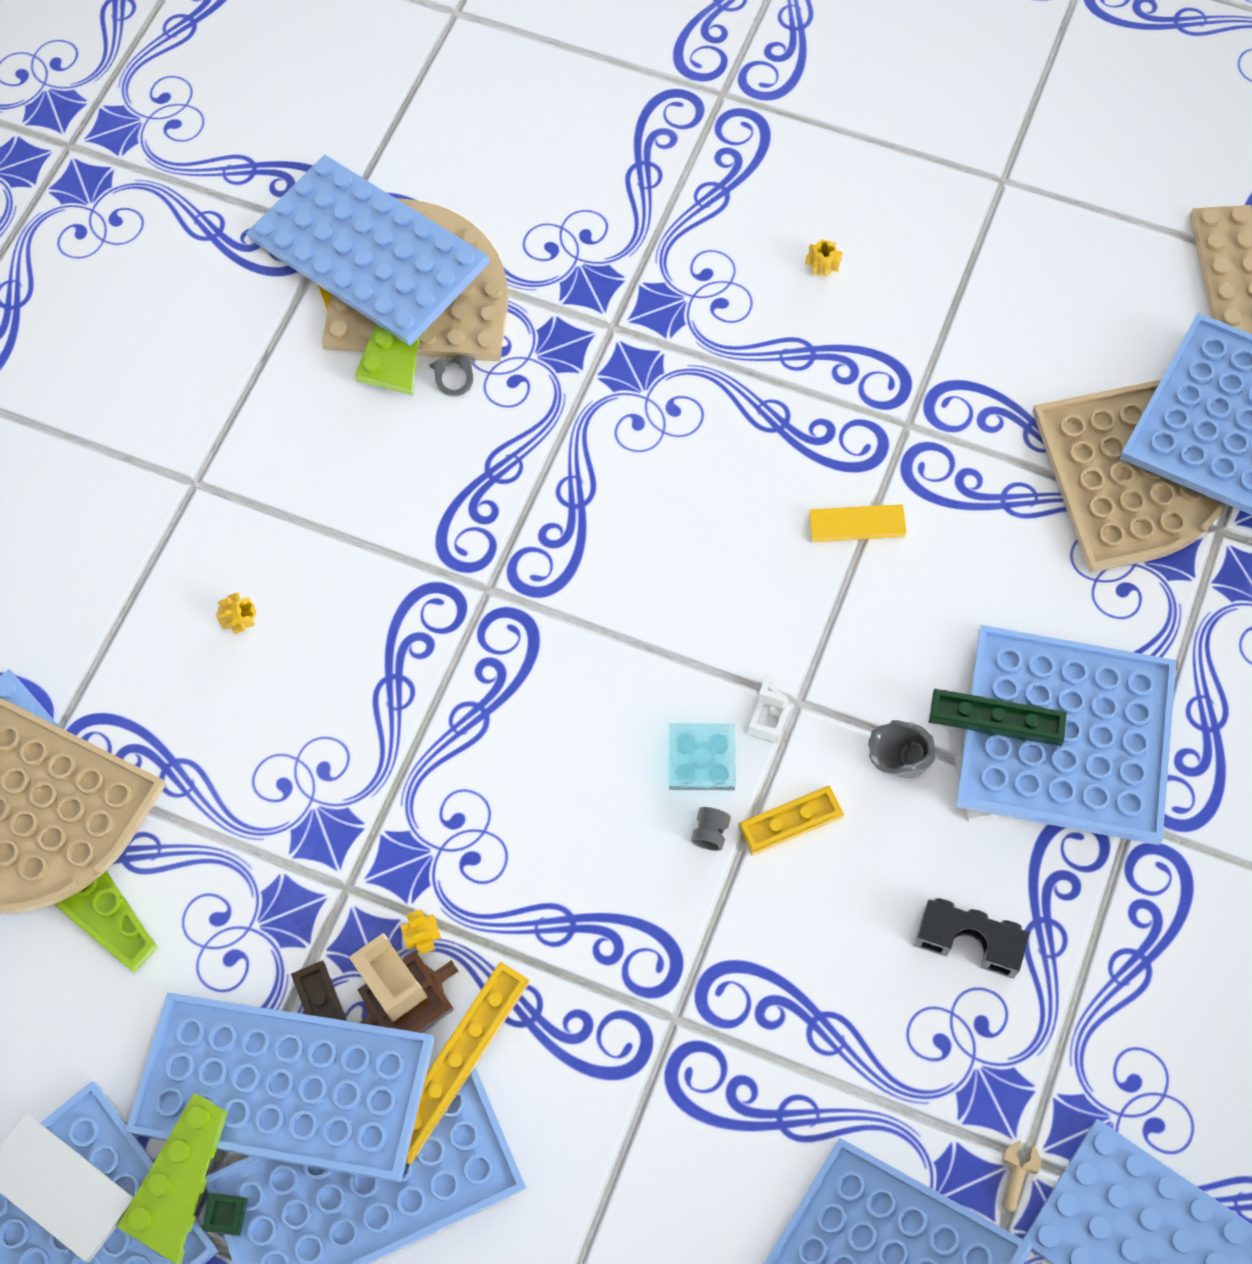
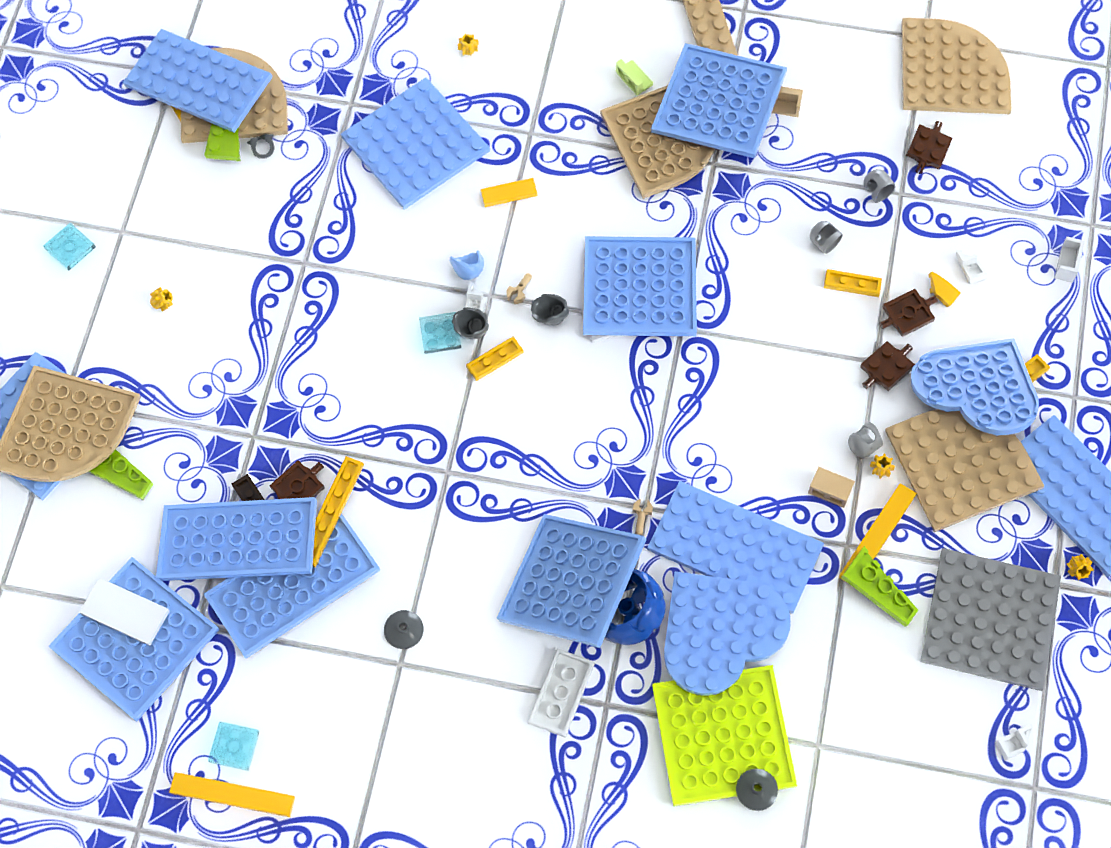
camera: 10 degrees left, 0 degrees up
(104, 494) = (69, 246): none -> clear light blue plate
(169, 1193) = (189, 595): lime wing -> none
(225, 1214) = (219, 608): dark green tile -> none
(388, 977) = (285, 474): tan panel -> none
(420, 931) = (299, 449): yellow gear -> none
(710, 411) = (415, 143): none -> light blue plate
(710, 828) = (451, 367): dark grey wheel -> none
(758, 750) = (470, 323): none -> dark grey hair
(769, 643) = (468, 266): none -> light blue hair
(851, 700) = (519, 289): none -> tan bar
(997, 717) = (599, 283): dark green tile -> none
(1001, 941) = (586, 396): black arch -> none
(1097, 355) = (633, 76): none -> yellowish green panel

